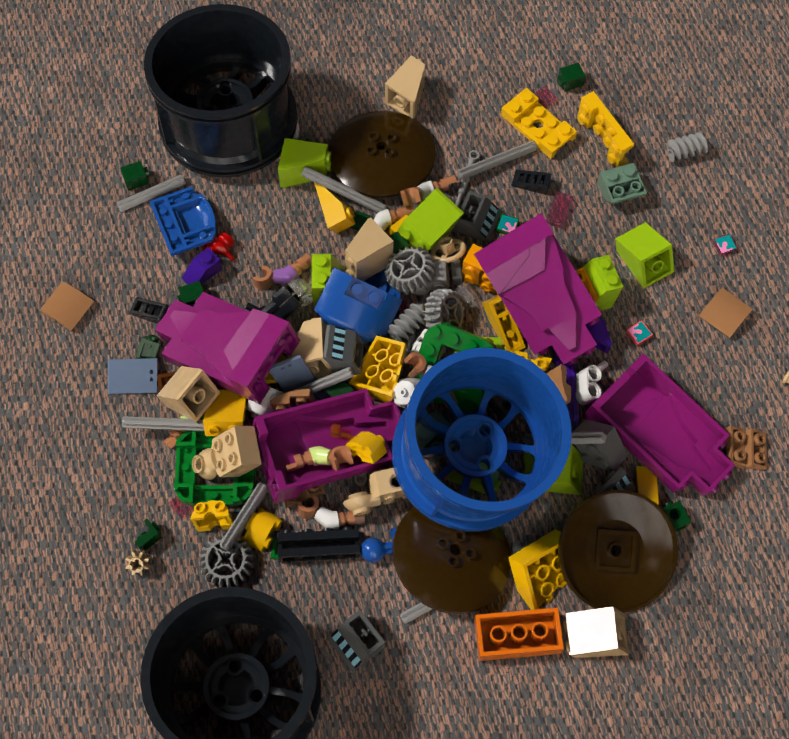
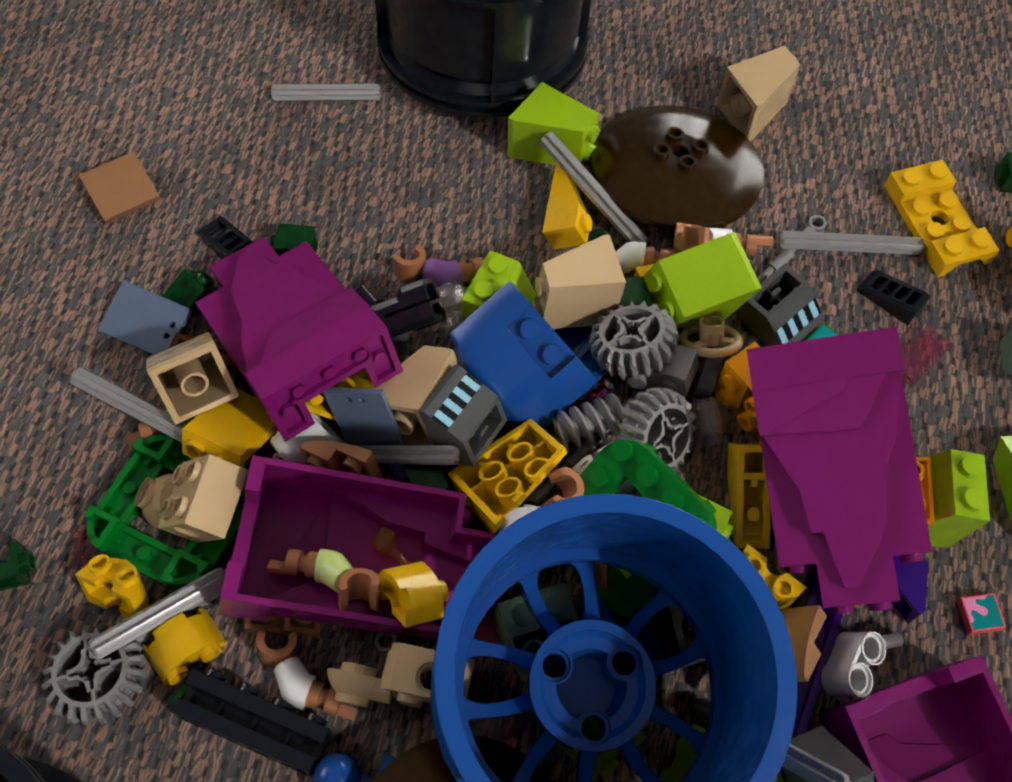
camera: 25 degrees right, 5 degrees down
(135, 175) = (316, 60): dark green brick -> none
(184, 220) = (345, 141): blue slope -> none
(202, 267) = (333, 213): dark purple slope -> none
(221, 245) = (375, 195): red animal -> none
(545, 96) = (967, 186): clear pink tile -> none

